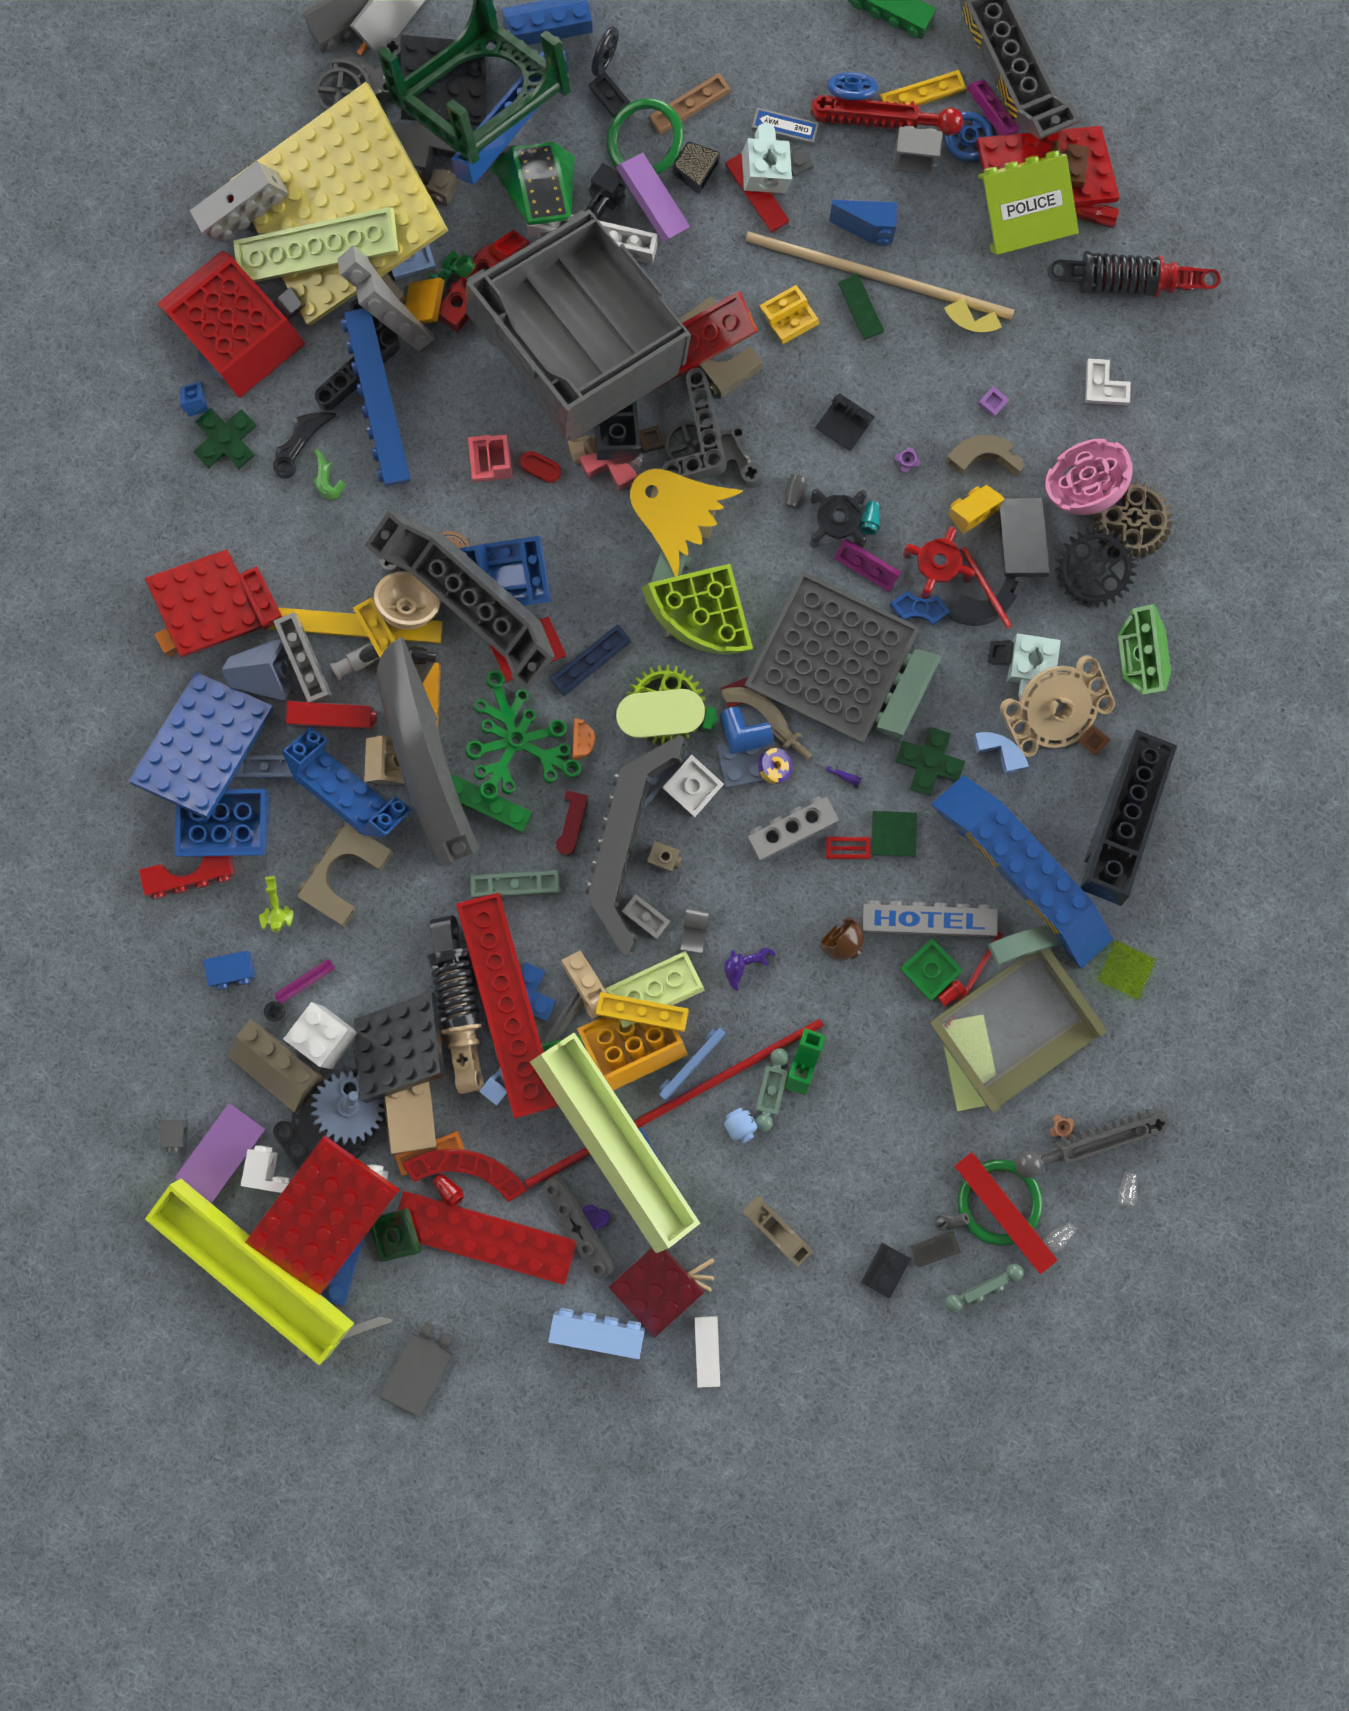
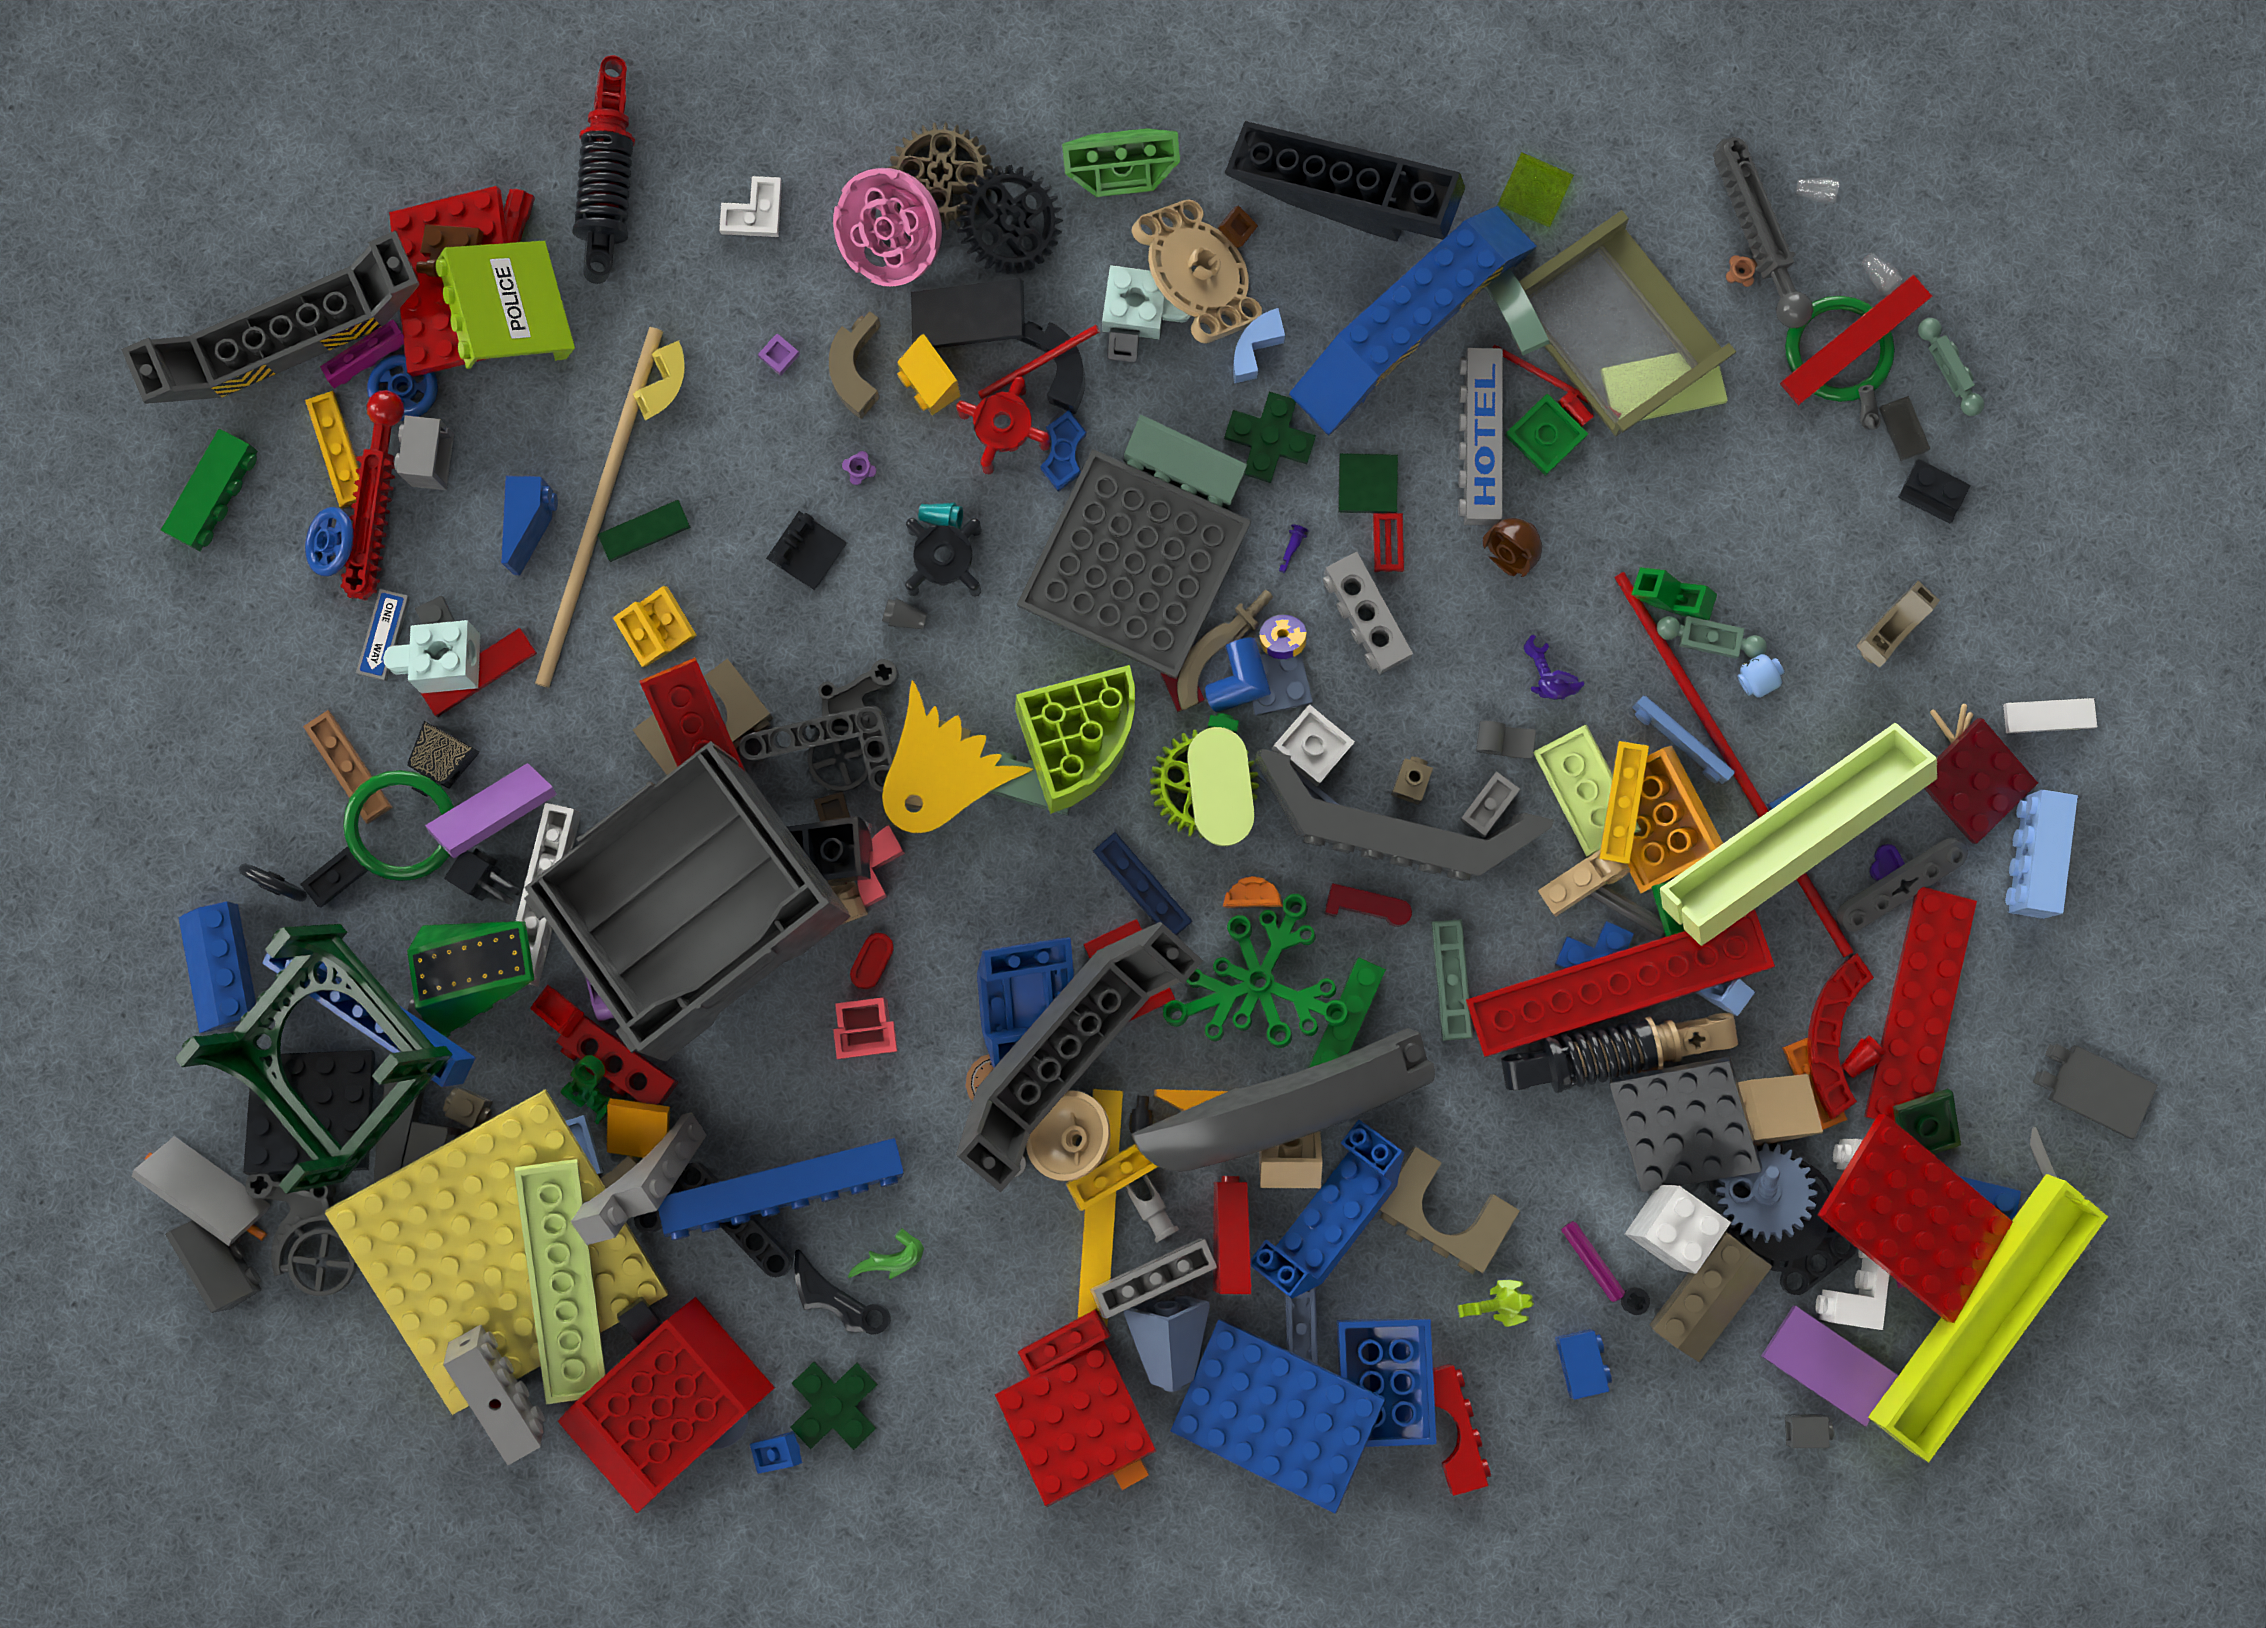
camera: 90 degrees left, 0 degrees up
(867, 565) = (1006, 518): magenta plate -> none

